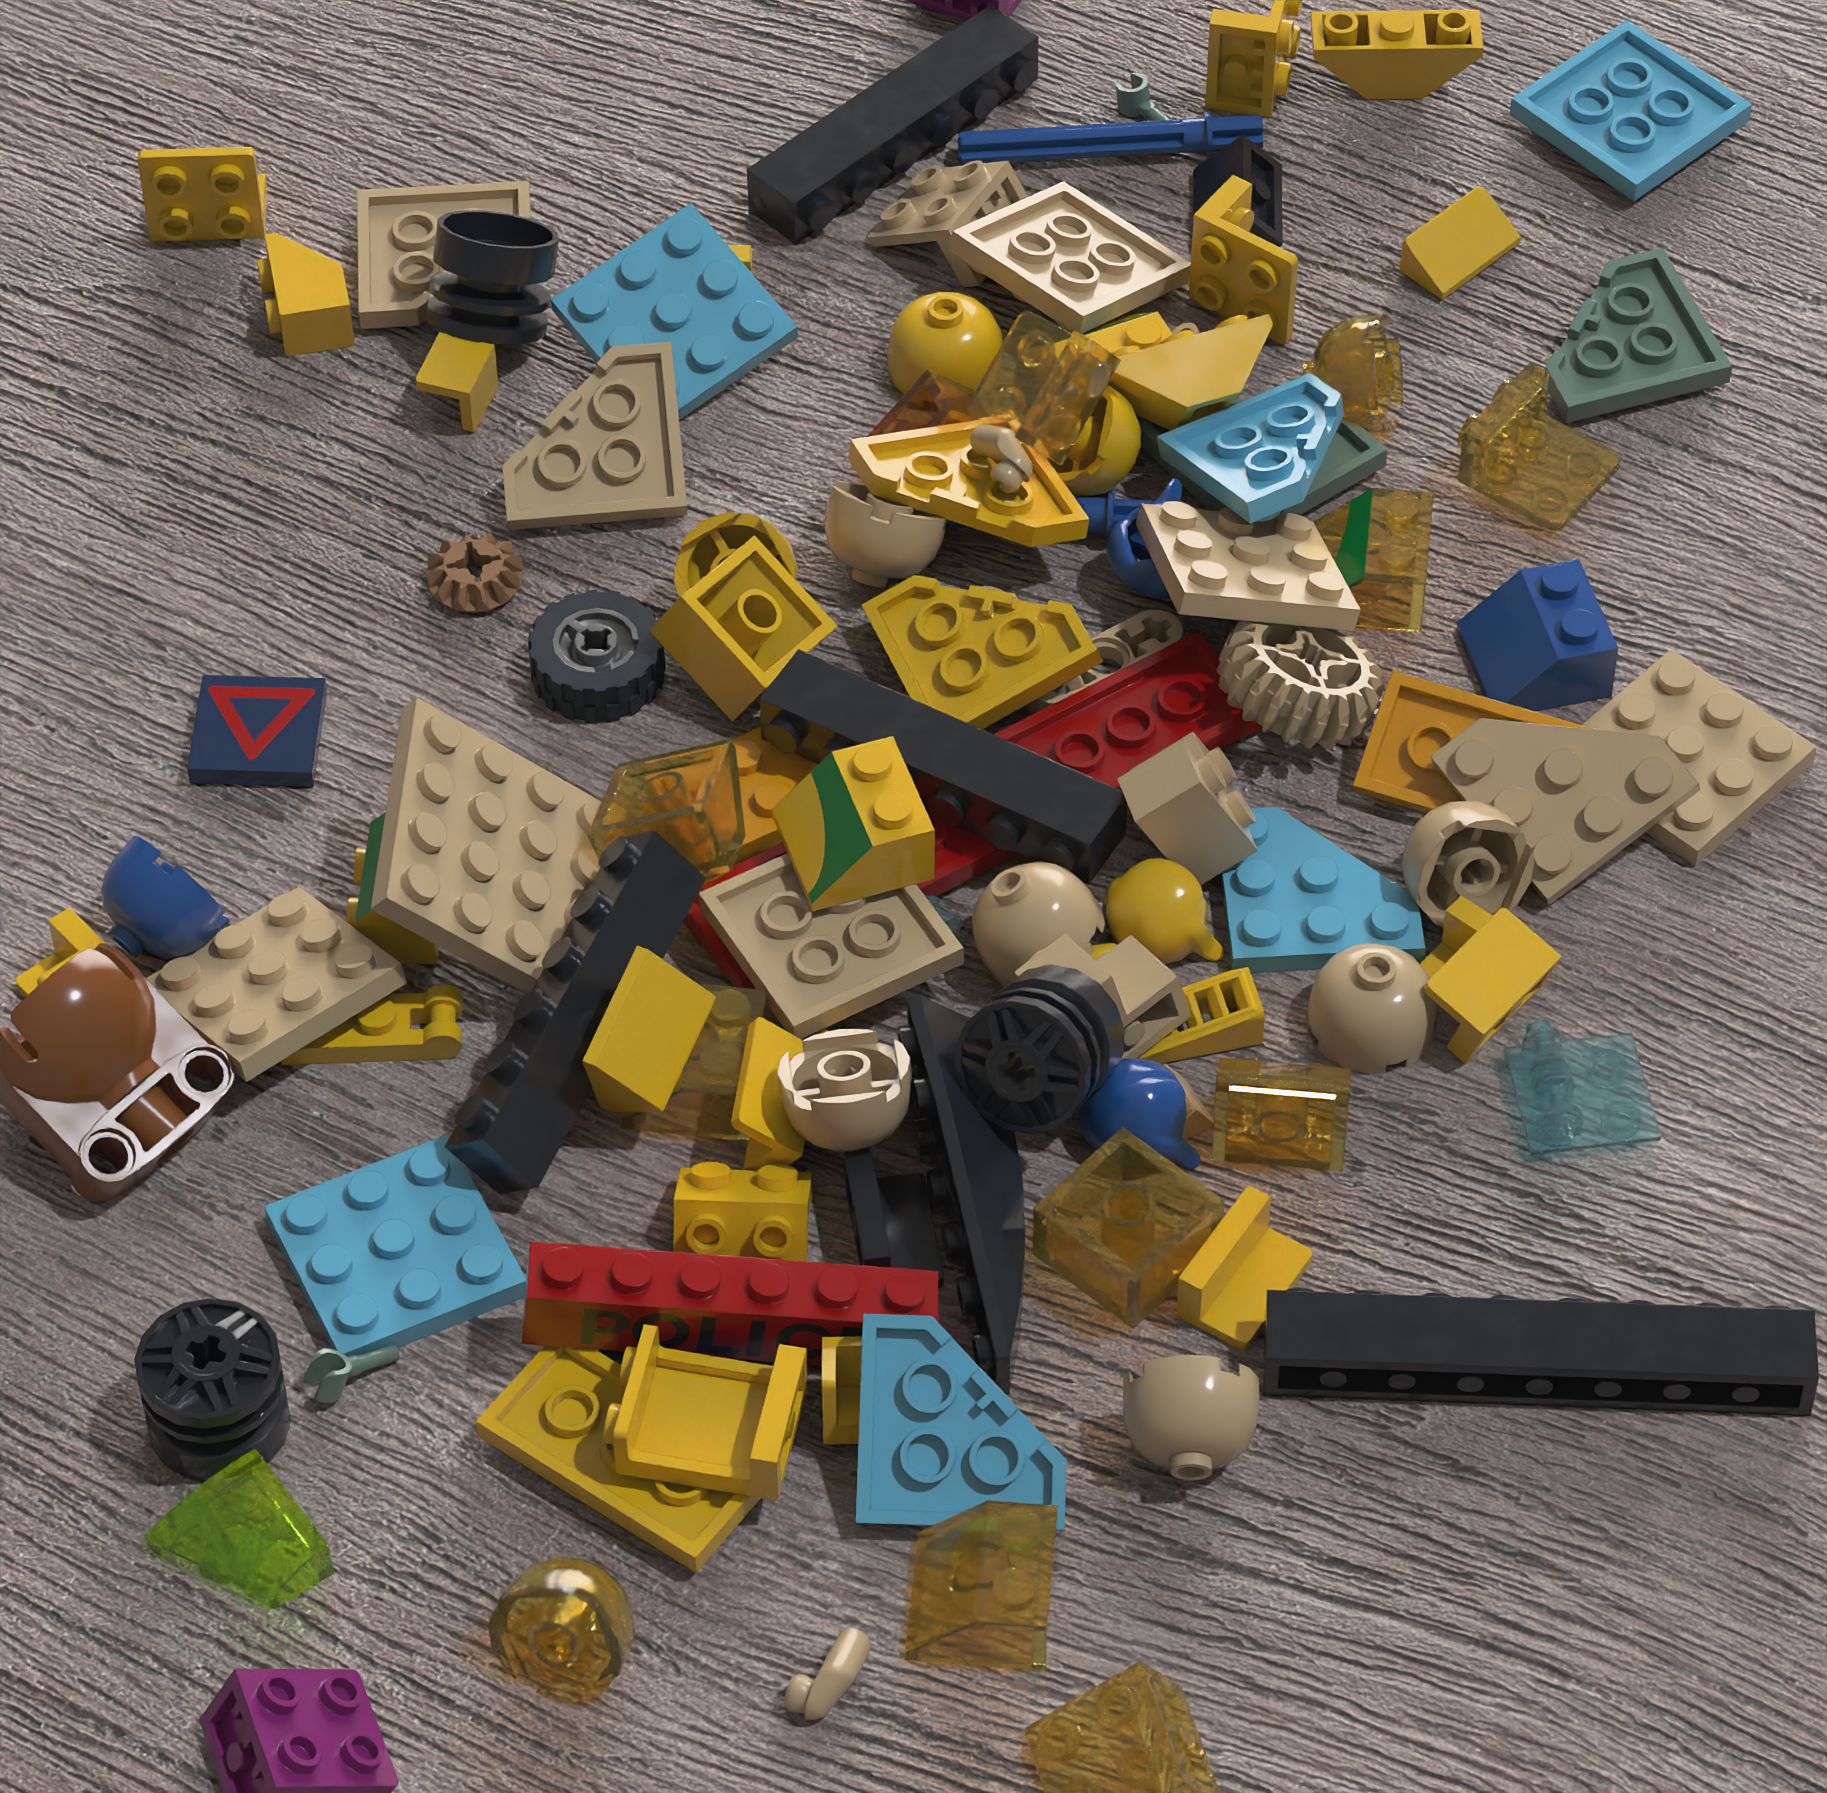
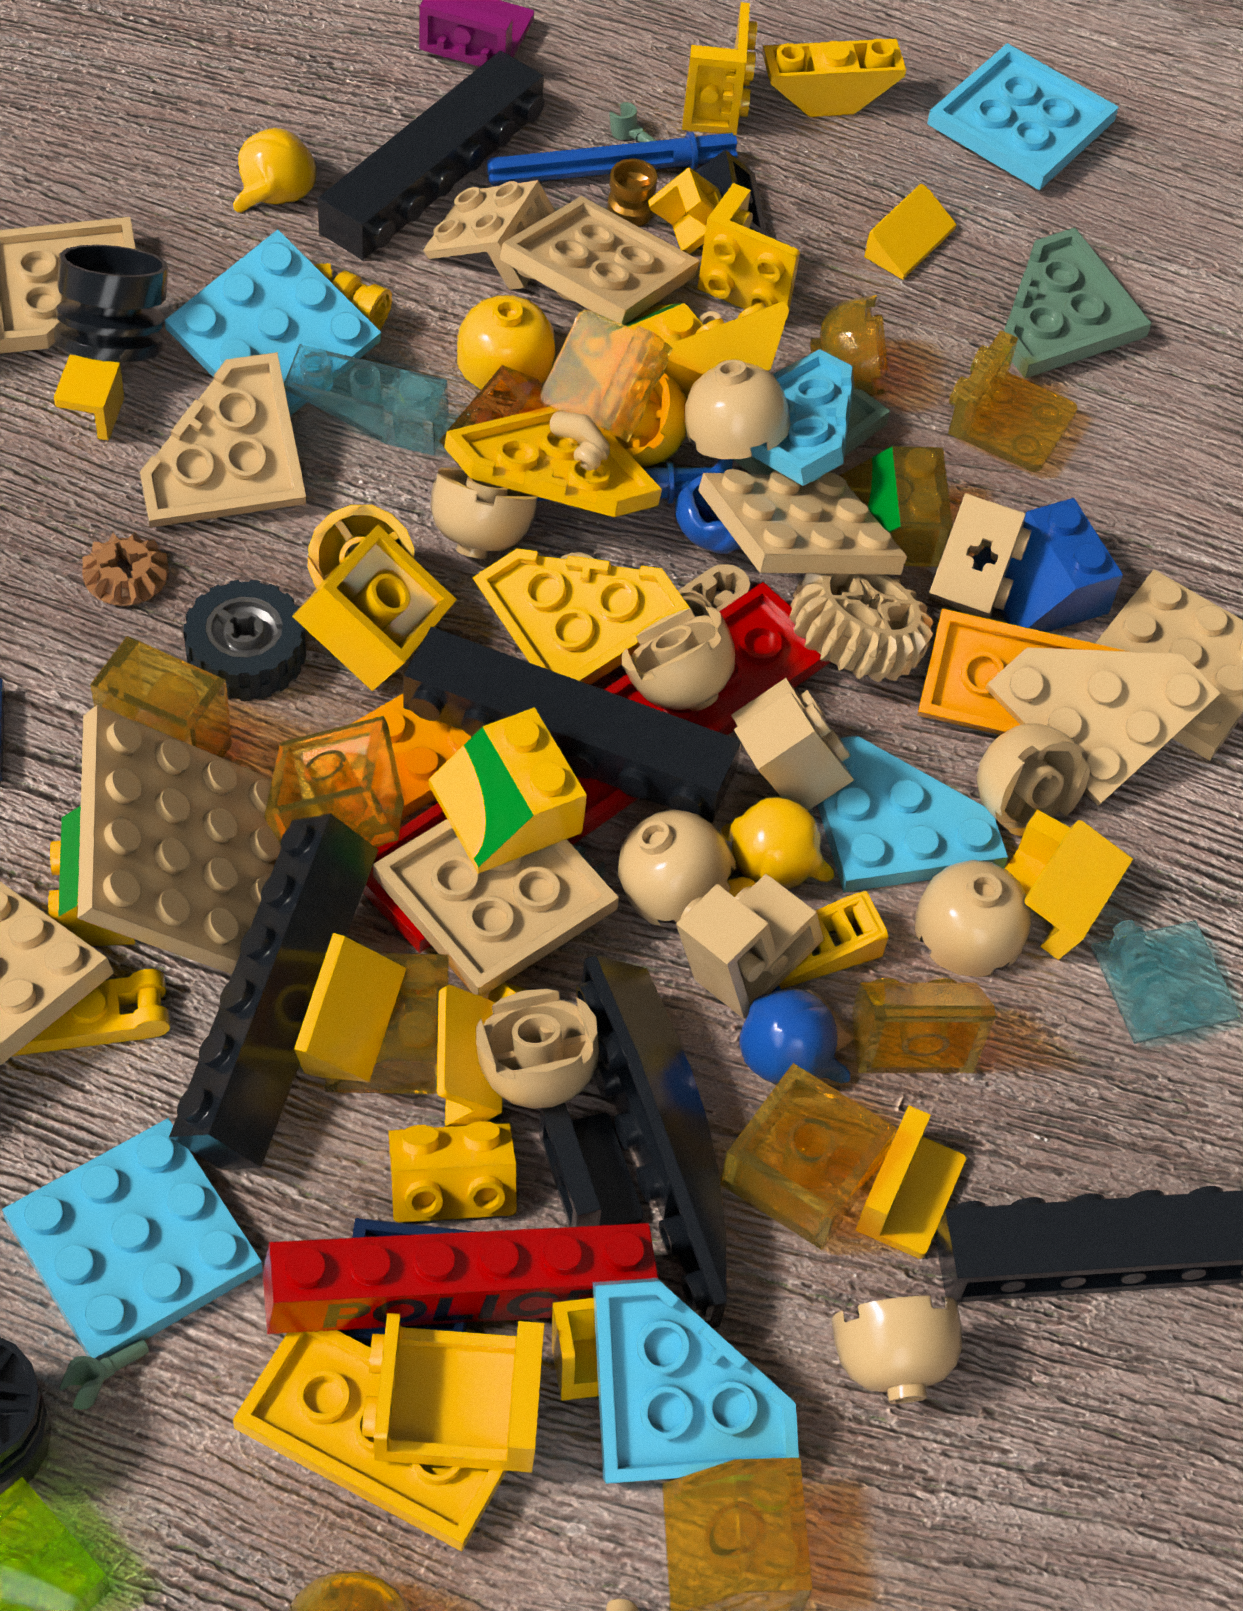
camera: 15 degrees left, 5 degrees up
(499, 702) = (165, 695): none -> clear yellow brick
(703, 133) = (274, 169): none -> yellow hair
(777, 399) = (373, 397): none -> clear light blue slope
(794, 292) = (370, 300): none -> yellow wheel
(1039, 1049) = (712, 998): black wheel -> none
(1078, 706) = (682, 660): none -> tan cylinder
(1126, 179) = (631, 187): none -> pearl gold wheel
(1180, 194) = (686, 206): none -> yellow panel
(1186, 433) = (736, 410): none -> tan cylinder
(1451, 586) = (980, 525): none -> tan brick

